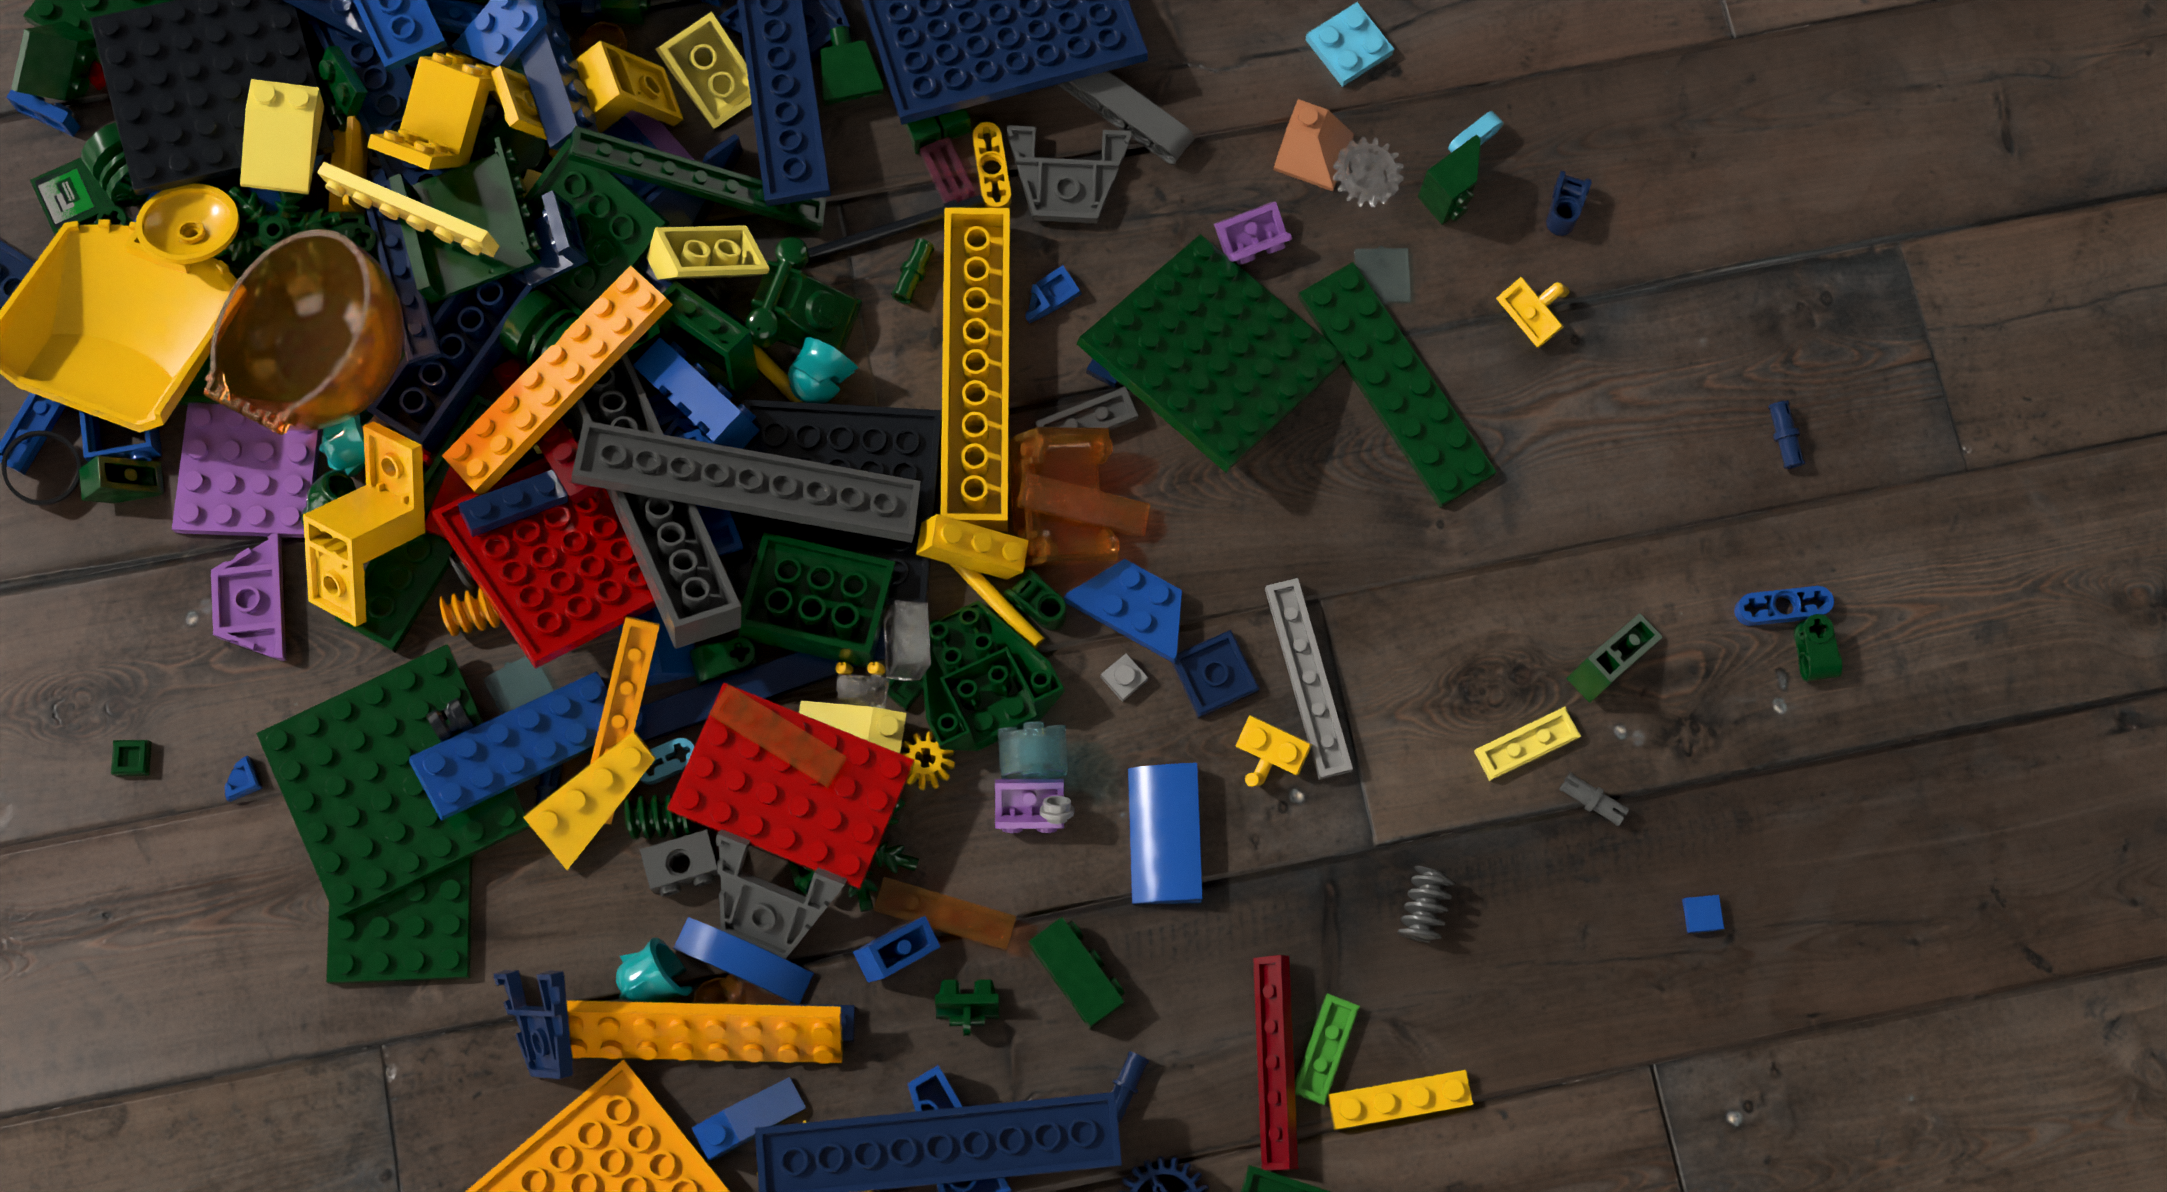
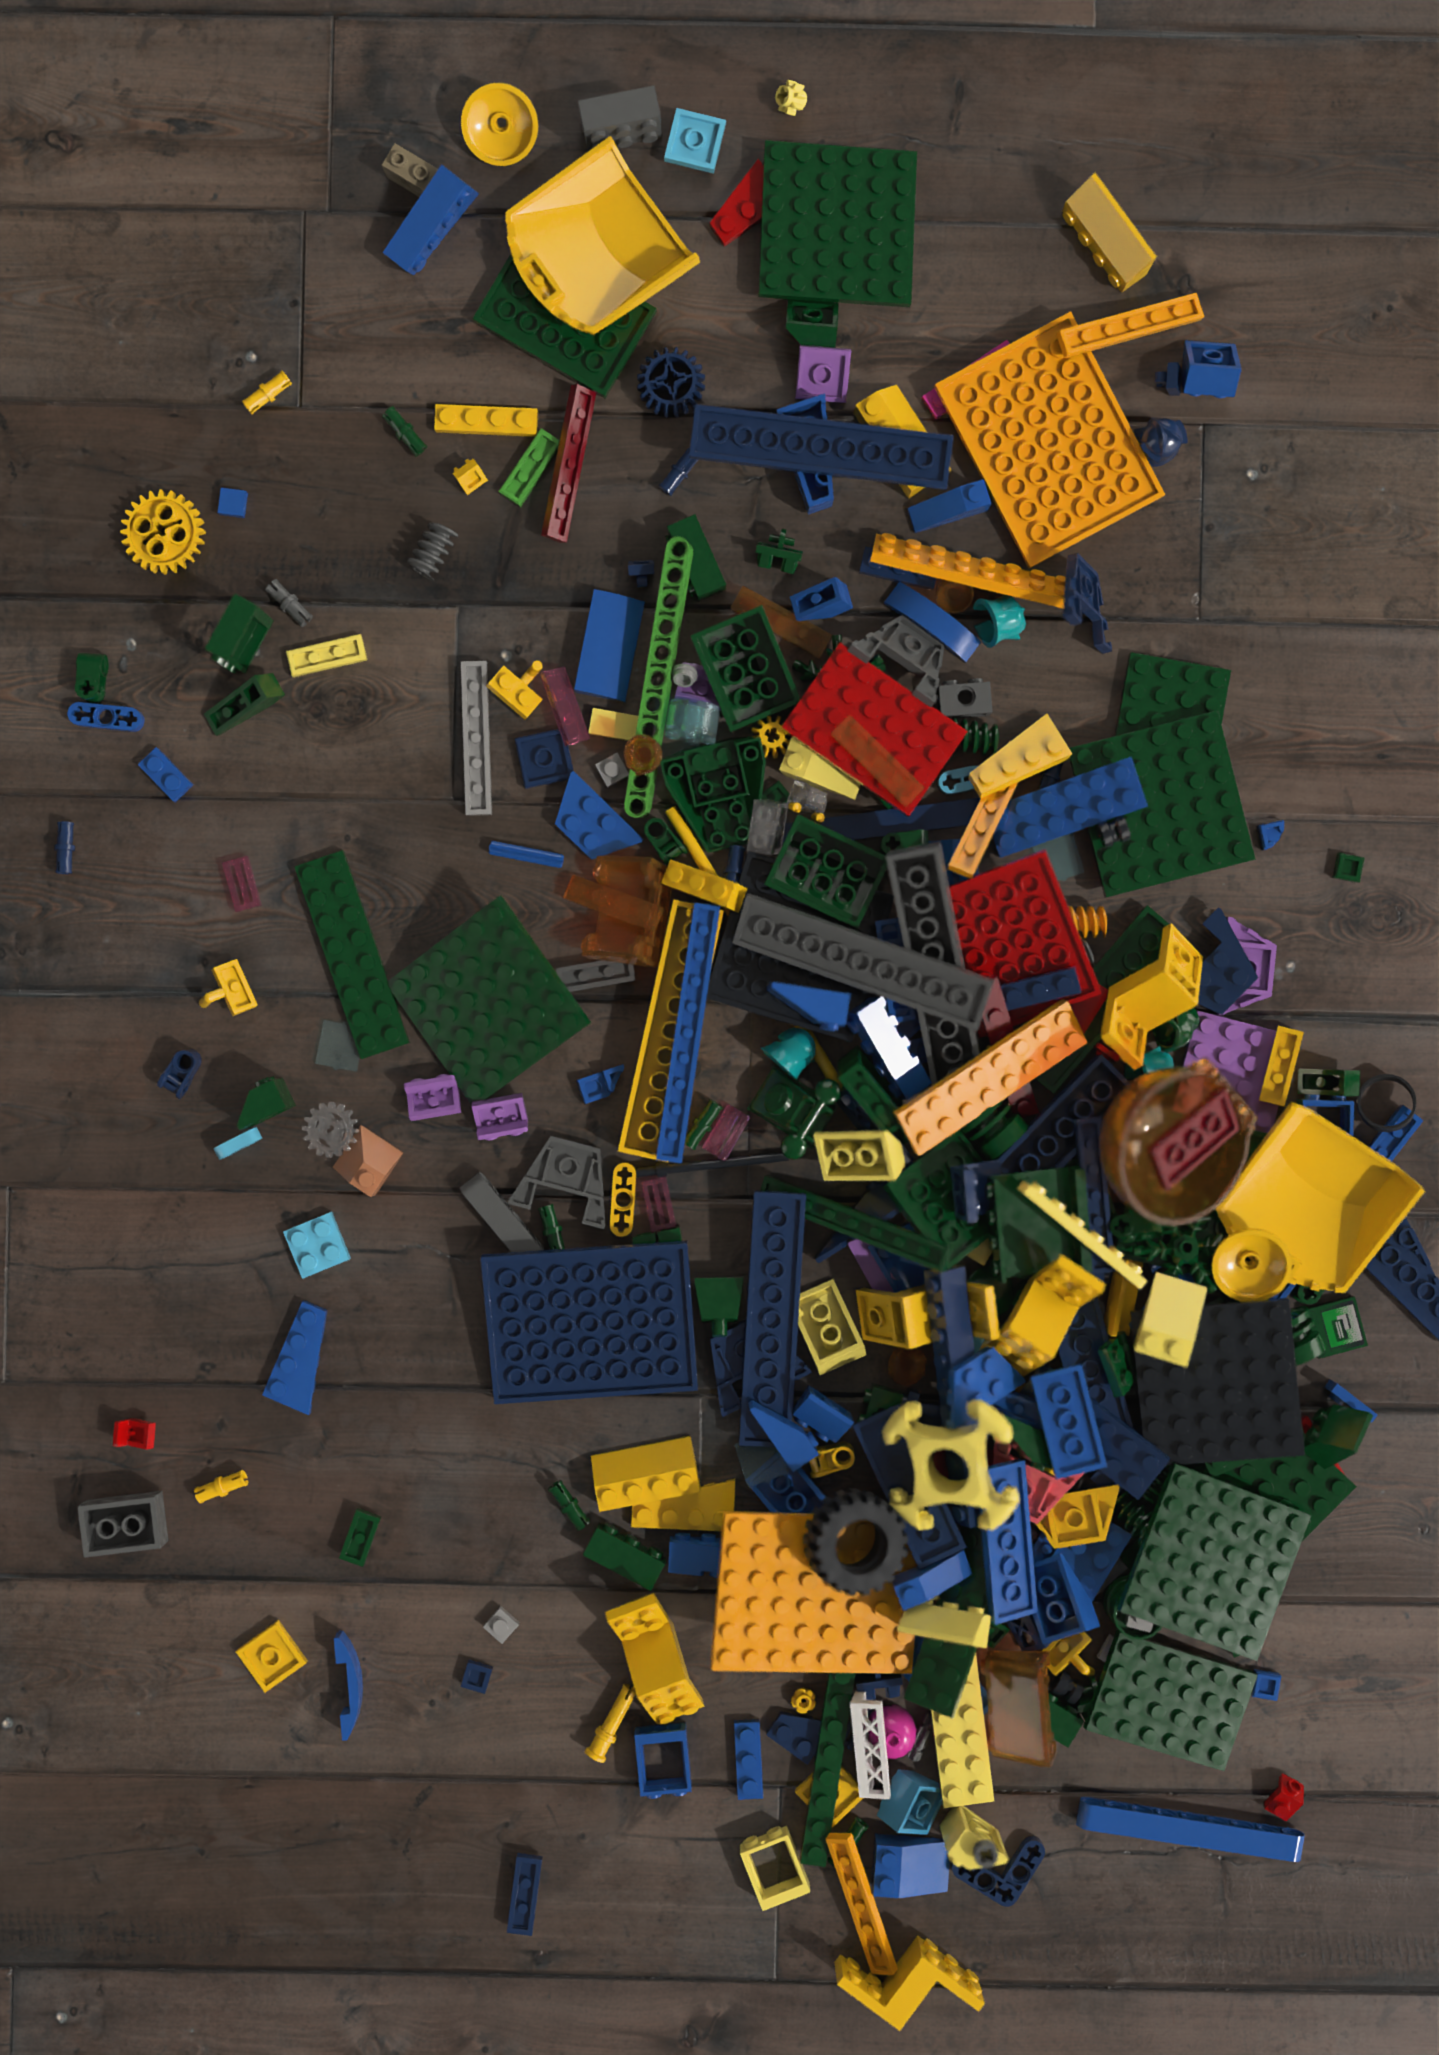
camera: 155 degrees left, 15 degrees up
(185, 483) = (1281, 1066): none -> yellow panel
(275, 586) = (1226, 970): none -> dark blue wing
(281, 335) = (1192, 1138): none -> dark red tile
(796, 423) = (816, 1005): none -> blue slope
(890, 244) = (719, 1127): none -> clear pink tile
(940, 587) = (734, 864): none -> dark blue pin
(952, 361) = (688, 1033): none -> blue plate
(977, 835) = (746, 668): none -> dark green slope
(1070, 114) = (551, 1227): none -> dark green pin
(1086, 686) = (643, 754): none -> clear orange hair
(1090, 813) = (656, 666): none -> bright green beam
(1132, 735) = (613, 724): none -> light yellow tile
(1145, 941) = (641, 569): none -> dark blue tile
(1164, 227) = (500, 1116): none -> medium lavender bracket
(1204, 742) = (564, 706): none -> clear pink tile
(1209, 548) = (526, 854): none -> blue axle
(1402, 1016) = (469, 476): none -> yellow tile
(1504, 1058) = (404, 431): none -> dark green pin
(1558, 467) = (252, 884): none -> clear pink tile
(1645, 730) = (238, 635): none -> dark green window
(1688, 551) = (165, 774): none -> blue plate
(1700, 1069) = (266, 392): none -> yellow pin
(1803, 875) = (151, 512): none -> yellow gear

